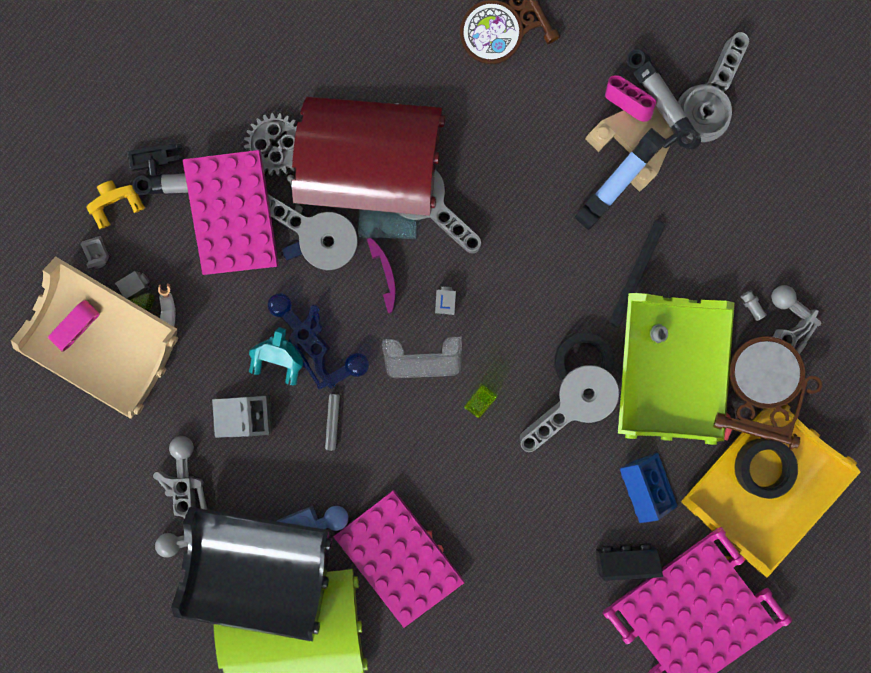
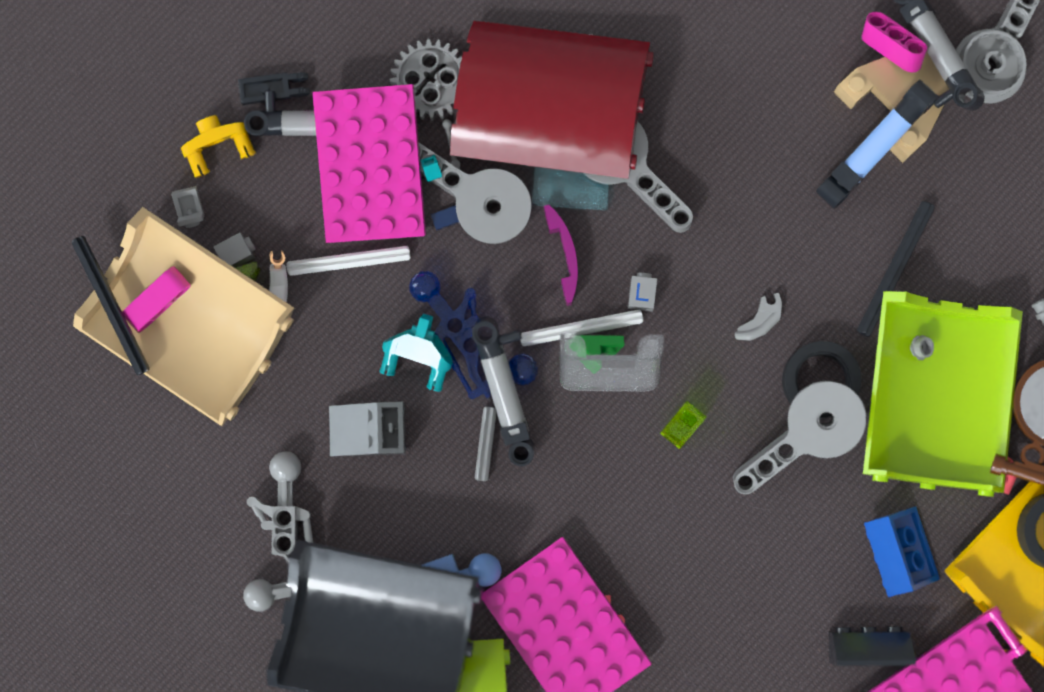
camera: 10 degrees right, 5 degrees down
(38, 332) = (110, 305): none -> black axle
(220, 287) = (348, 260): none -> white axle
(278, 214) = (431, 168): none -> teal piece
(352, 409) = (503, 390): none -> piece
(400, 330) = (582, 327): none -> white axle
(412, 343) = (602, 344): none -> green slope
(538, 318) = (764, 320): none -> light grey piece

